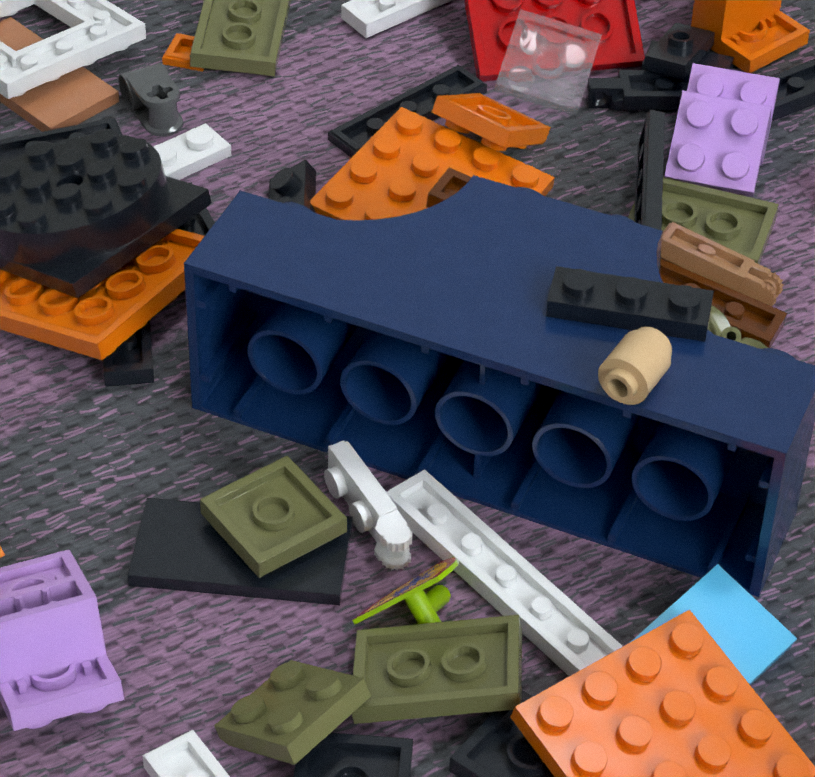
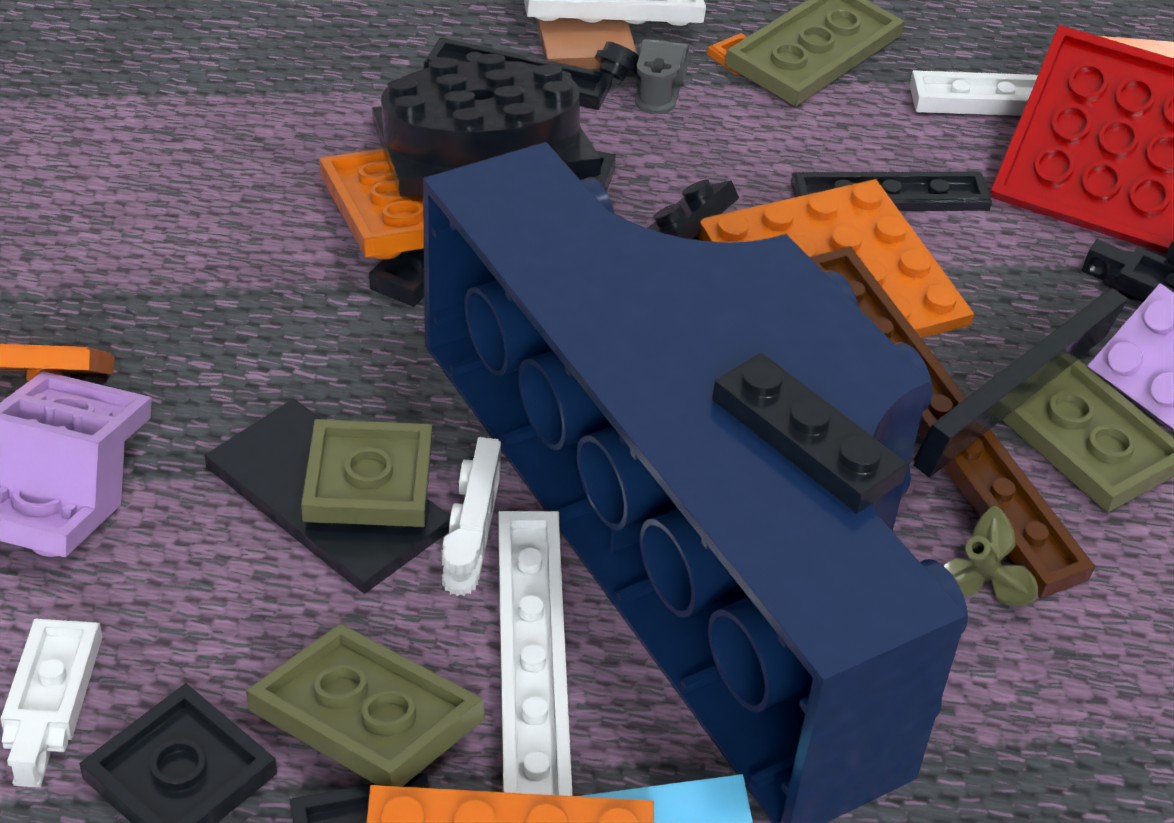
camera: 35 degrees right, 0 degrees up
(113, 103) = (617, 60): none -> black plate
(192, 151) = (640, 132): white plate -> none
(292, 711) = (195, 660): olive plate -> none
(422, 605) = (419, 638): lime shield -> none
(491, 120) = (953, 231): orange plate -> none
(547, 62) = (1065, 205): clear plate -> none
(635, 365) = (734, 491): tan brick -> none
(719, 264) = (1061, 479): medium nougat hinge -> none

